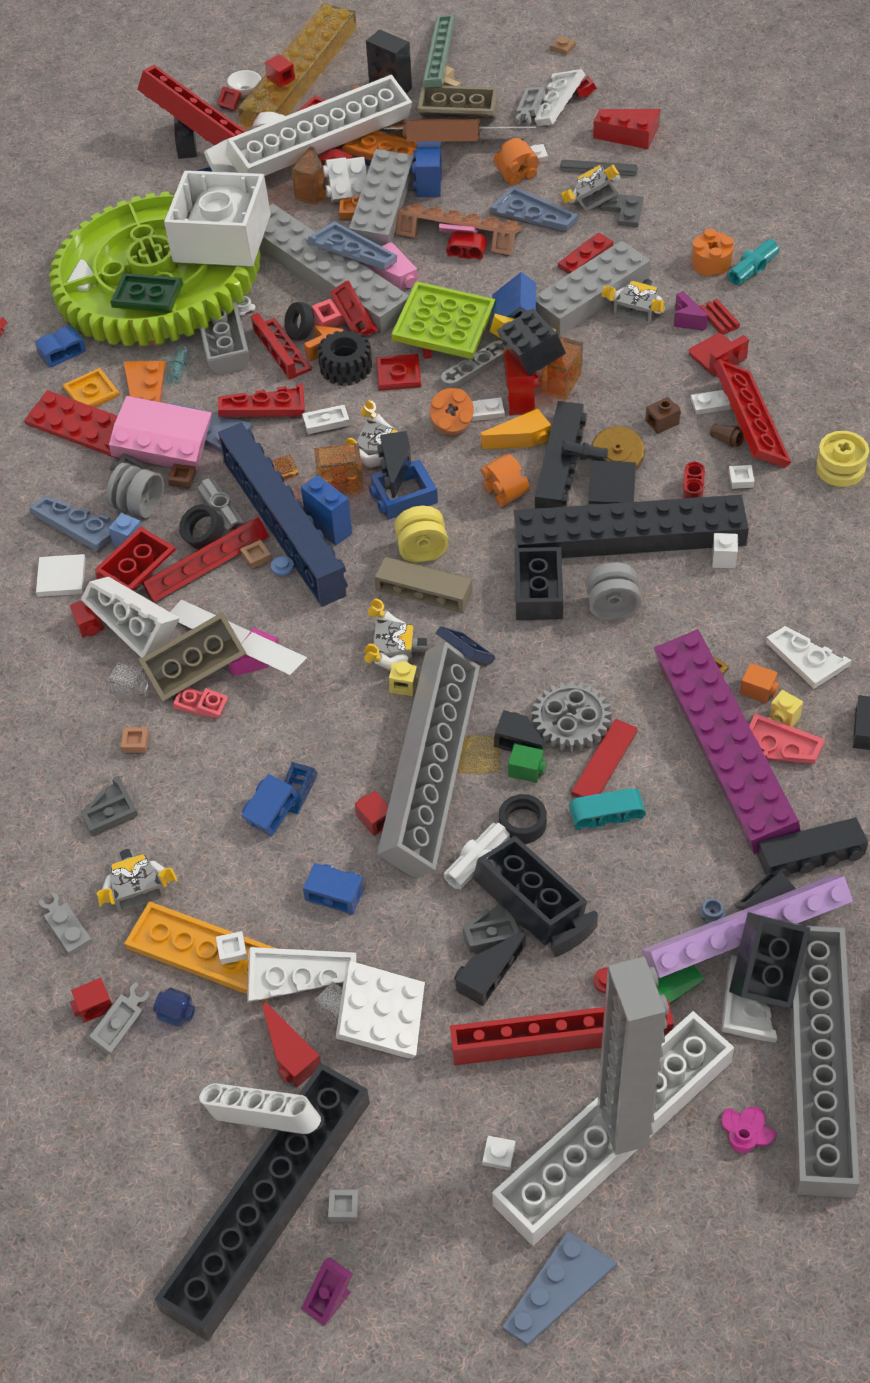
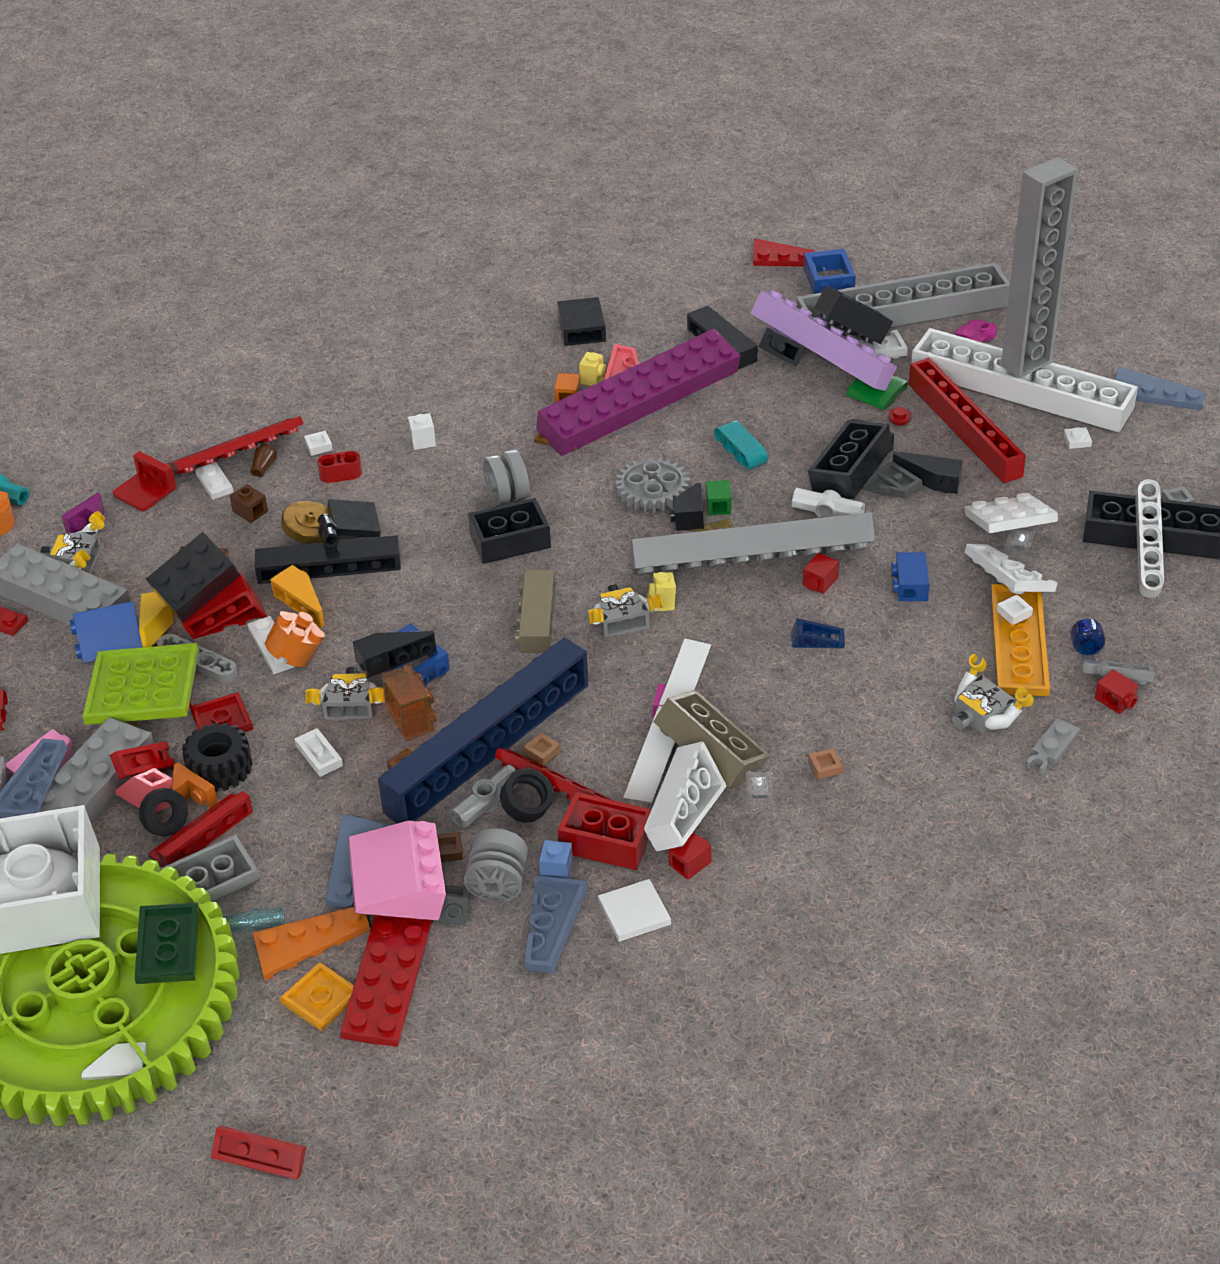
camera: 110 degrees left, 10 degrees down
(60, 346) = (250, 1052): blue brick -> none
(109, 808) = (913, 754): dark grey wing -> none
(205, 704) = (754, 725): coral slope -> none
(261, 404) = (307, 808): red wing -> none
(269, 804) = (852, 636): blue brick -> none
(282, 566) = (549, 725): medium blue plate -> none
(293, 1054) = (1077, 559): red slope -> none
(328, 509) = (473, 681): blue brick -> none
(421, 534) = (480, 616): light yellow wheel -> none
(465, 645) = (607, 556): dark blue tile -> none
(504, 479) = (380, 580): orange brick -> none
(528, 802) = (770, 499): black tyre -> none
(605, 759) = (694, 460): red tile -> none
(632, 526) = (415, 495): black brick -> none
(709, 905) = (805, 377): sand blue plate -> none
(722, 315) = (82, 495): red tile -> none
(807, 659) = (524, 372): white wing -> none
(842, 458) = (282, 383): light yellow wheel -> none

